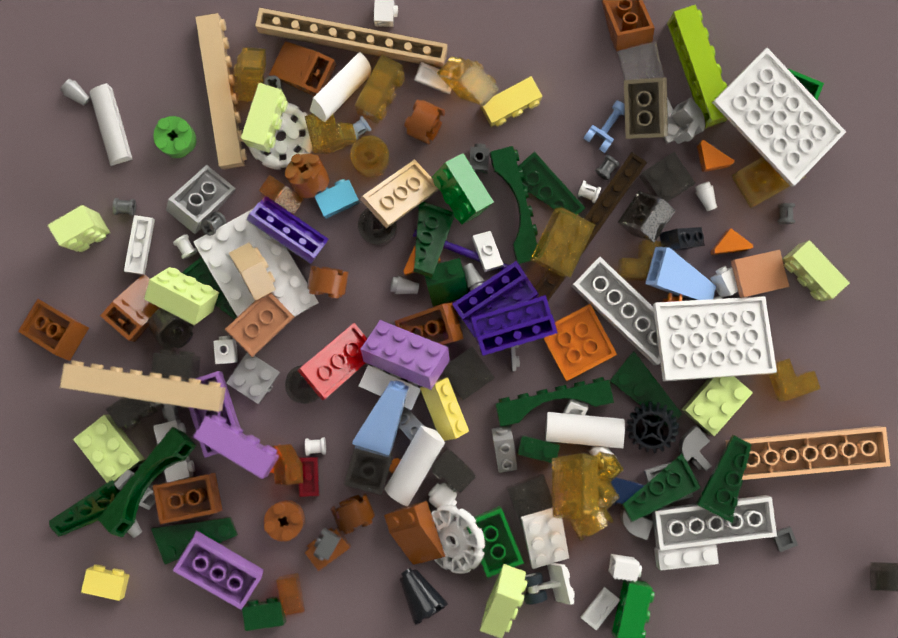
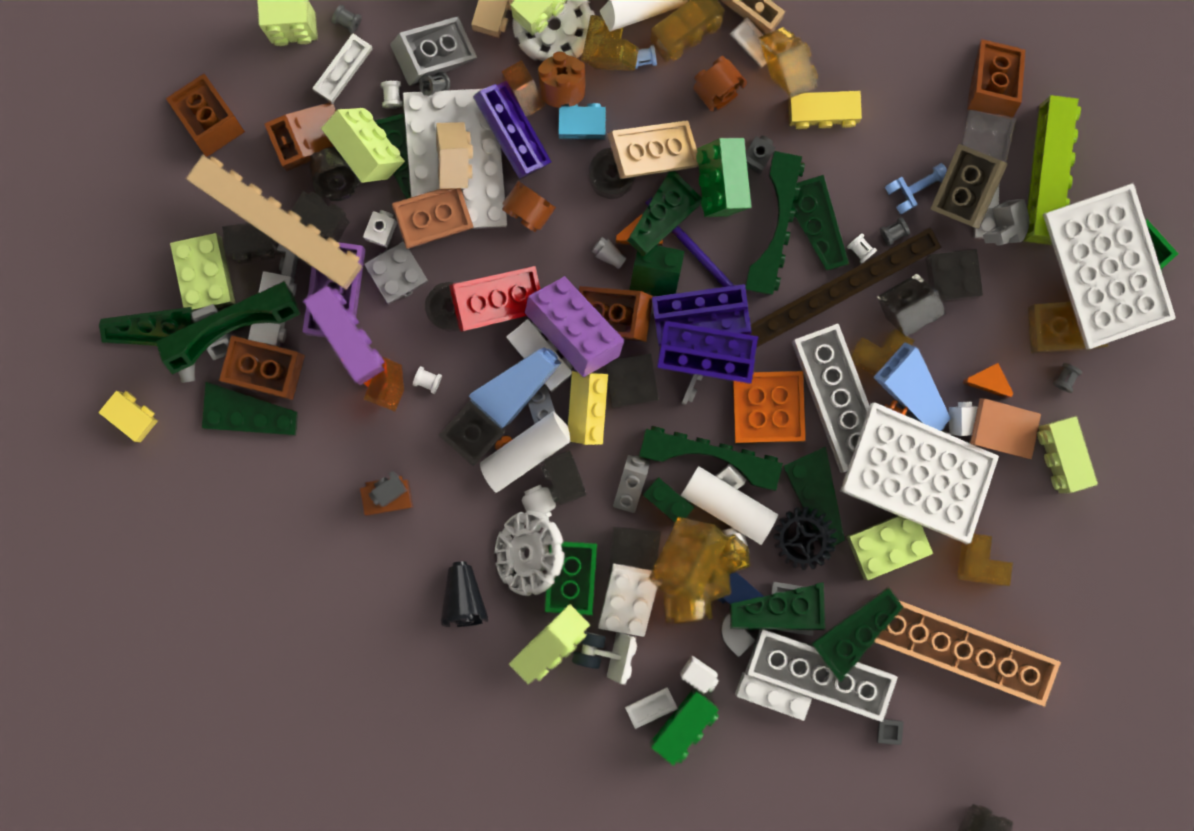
camera: 25 degrees right, 0 degrees up
(218, 570) = (258, 461): medium lavender brick -> none
(263, 614) = (282, 533): dark green brick -> none
(273, 522) = (341, 441): dark orange brick -> none
(290, 594) = (322, 527): clear orange slope -> none
(310, 483) = (406, 410): dark red plate -> none
(353, 513) = (433, 471): reddish brown brick -> none
(363, 148) = (636, 81): clear yellow brick -> none
(415, 532) = (490, 526): dark orange slope -> none
(472, 277) = (688, 279): light grey cone -> none
(487, 251) = (718, 259): white plate -> none
(563, 242) = (805, 288): clear yellow brick -> none
(682, 238) = (939, 349): black brick -> none
(691, 444) = (838, 578): light grey brick -> none
(706, 195) = (989, 315): white cone -> none
(712, 158) = (1015, 277): orange slope -> none

